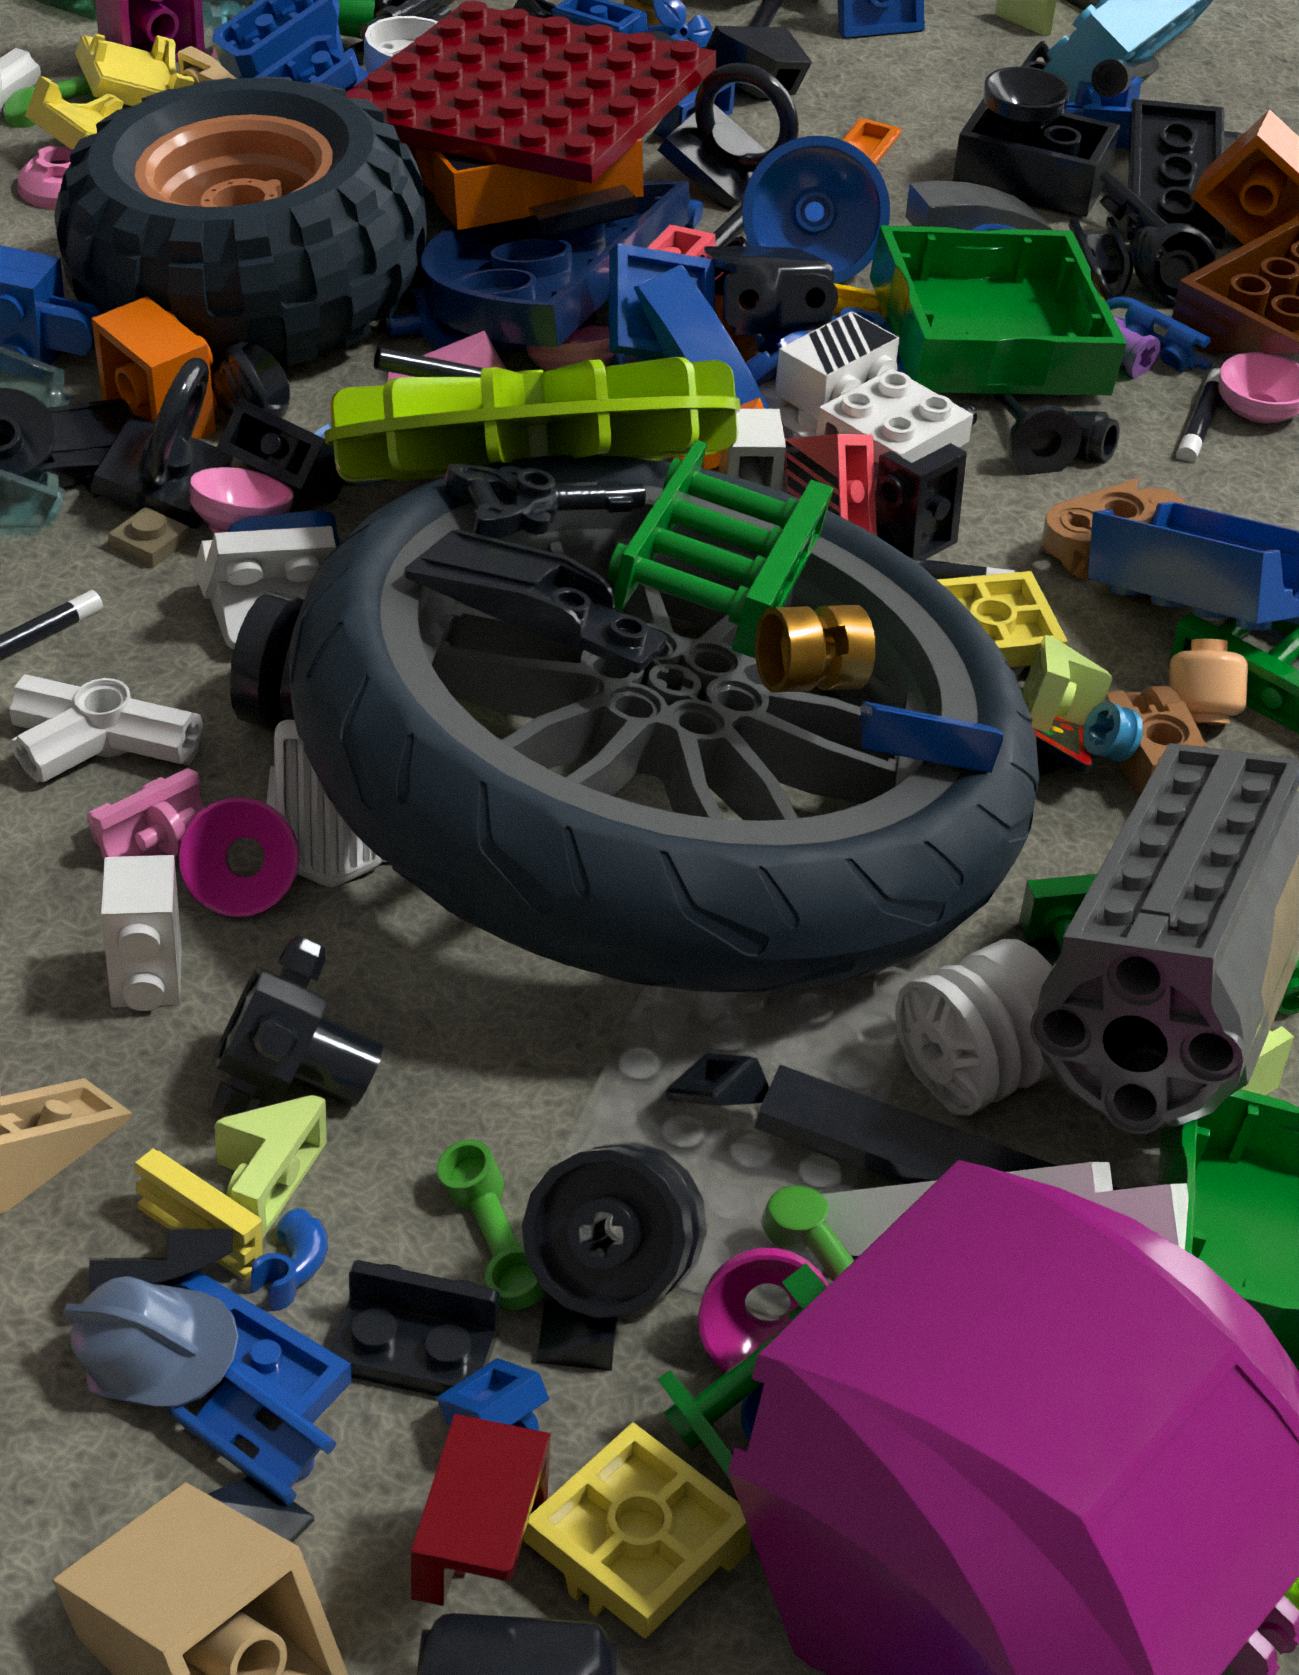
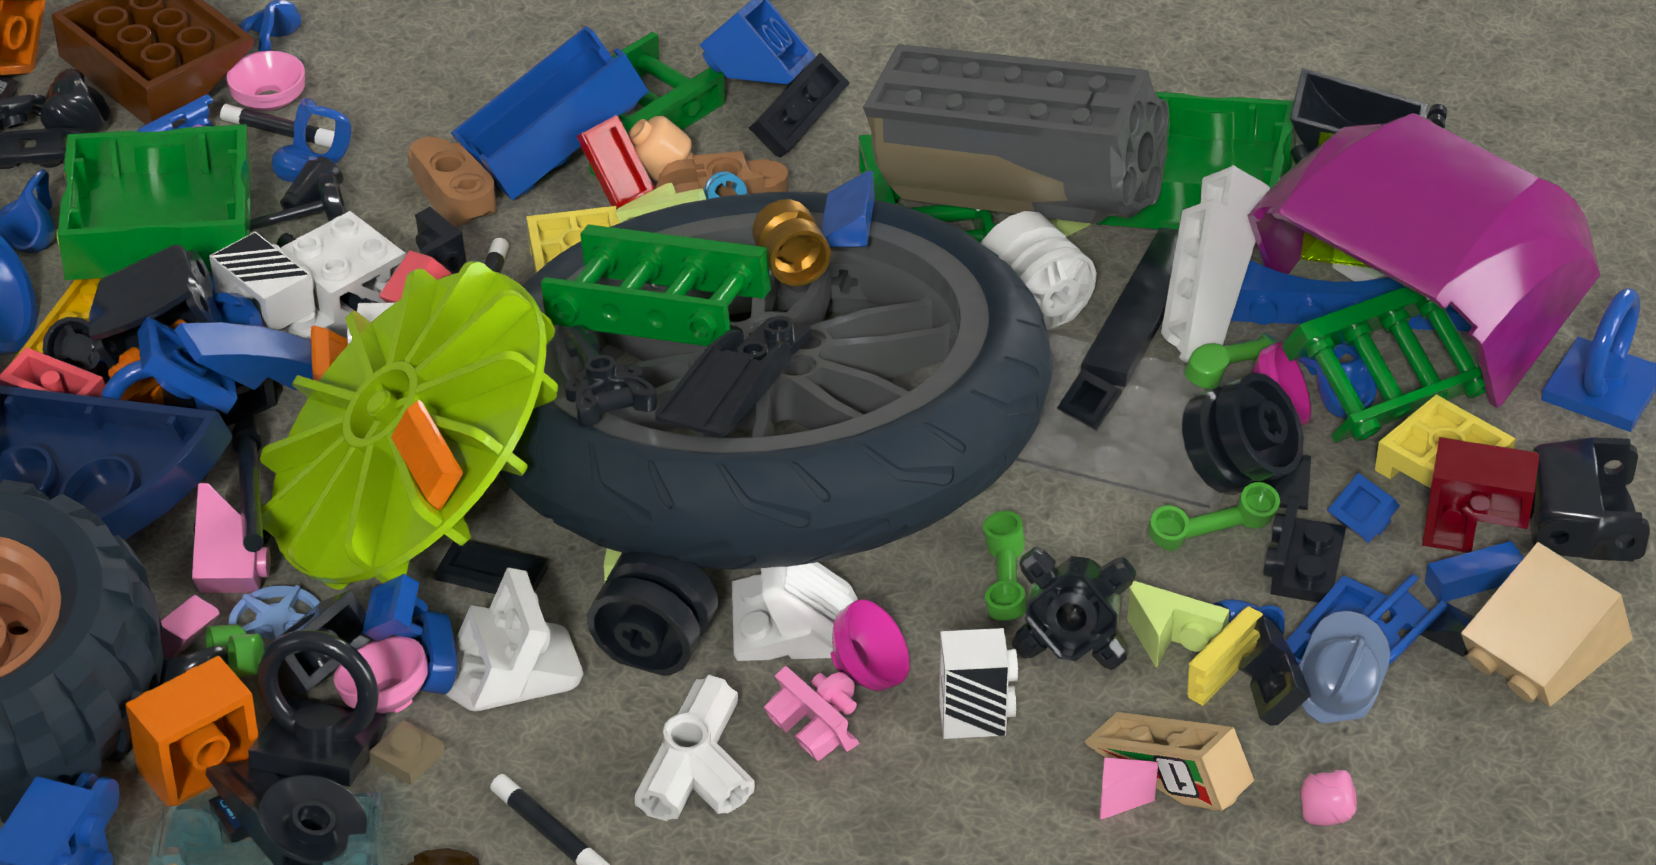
camera: 85 degrees left, 0 degrees up
(233, 379) = (242, 648): none -> bright green bar
(302, 476) = (392, 609): none -> blue tile
(325, 374) = (186, 625): none -> bright pink slope
(367, 1555) = (1472, 571): none -> blue piece
(368, 391) = (427, 455): none -> orange tile
(461, 1004) = (1006, 542): none -> bright green bar
(1145, 432) = (291, 158): none -> blue piece
(1153, 636) = (615, 162): none -> tile

